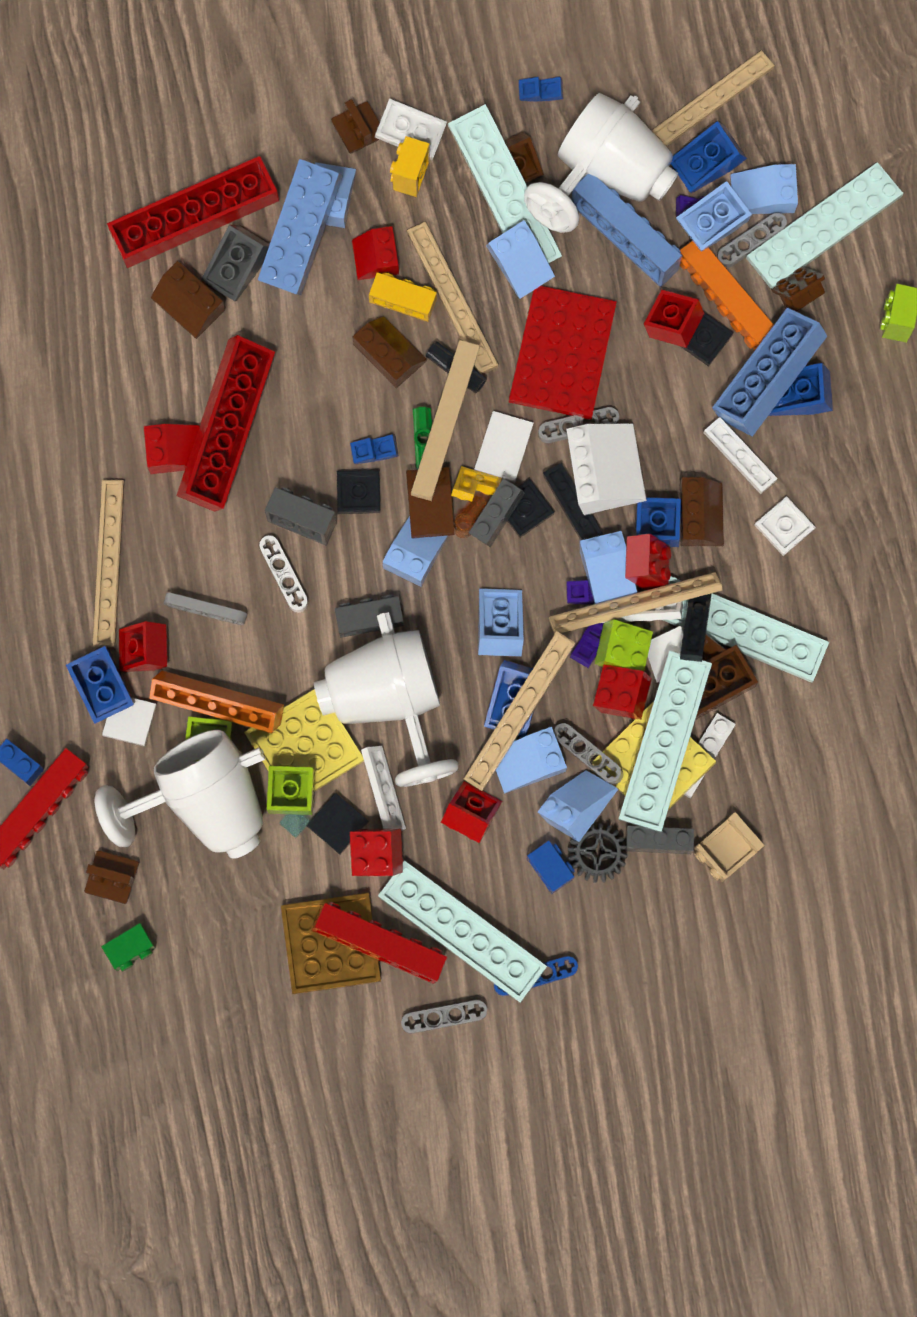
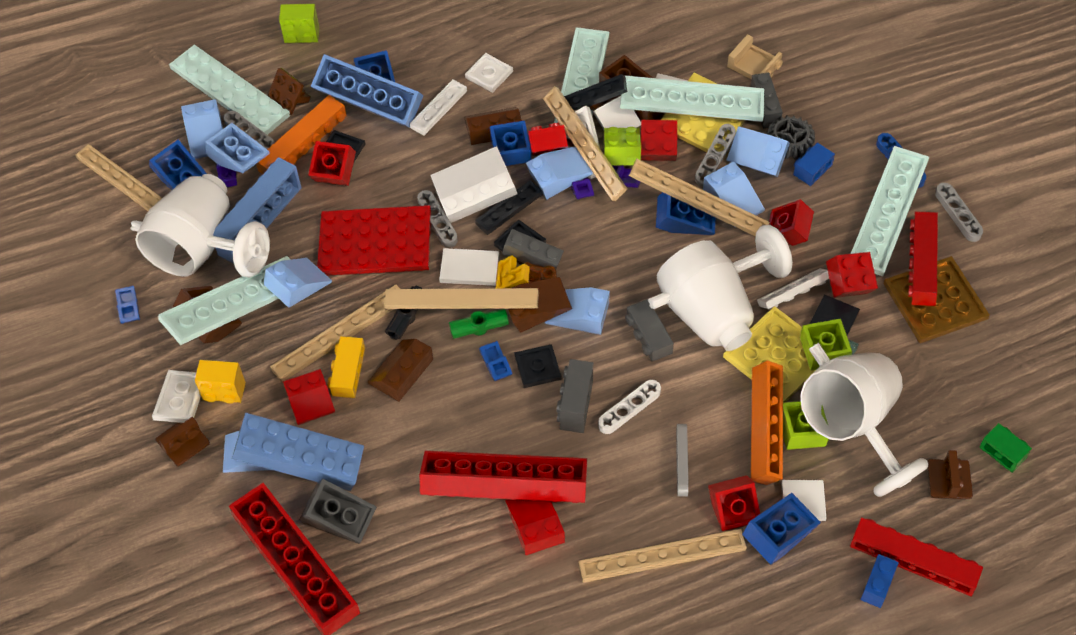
camera: 100 degrees left, 20 degrees down
(187, 300) = (384, 546): reddish brown slope -> none
(500, 622) = (625, 235): light blue slope -> none

